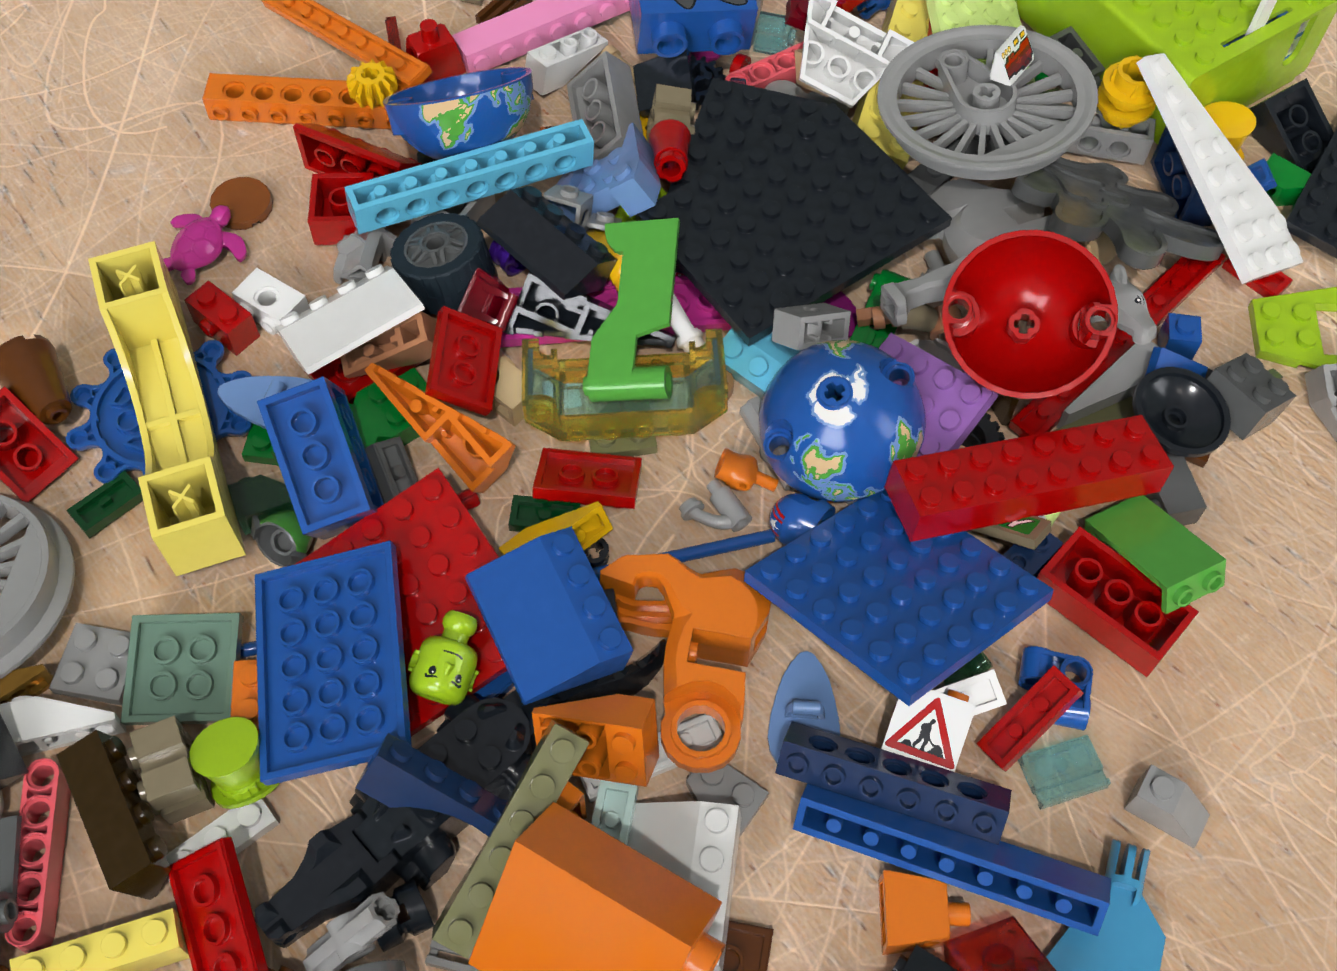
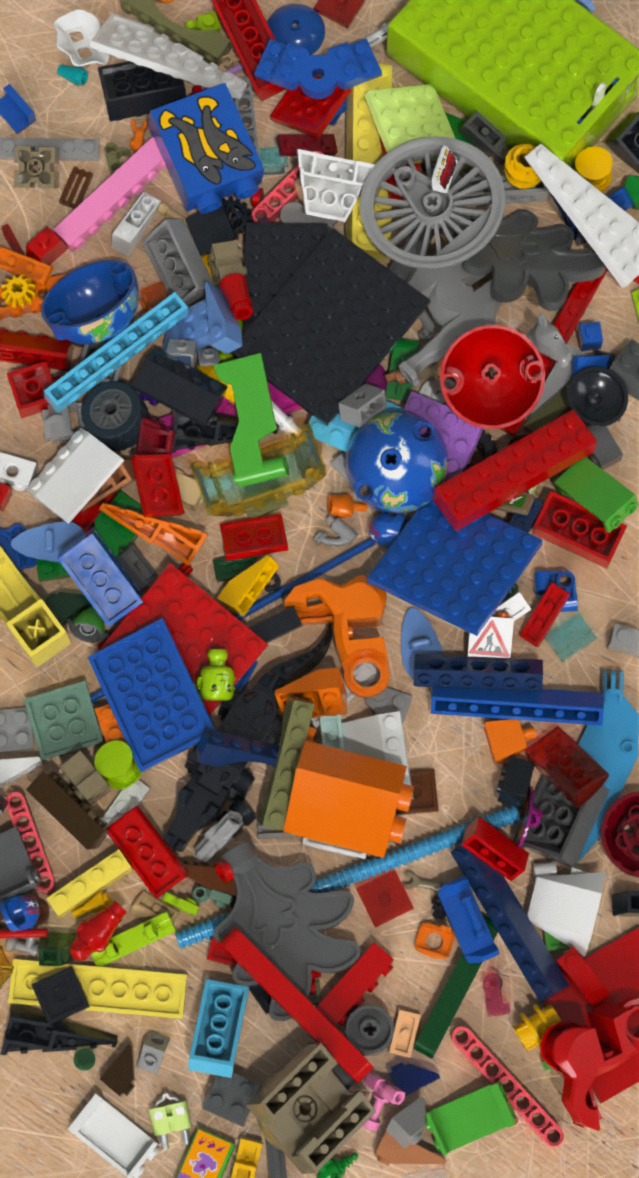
camera: 15 degrees left, 15 degrees up
(549, 616) = (265, 635): blue slope -> none

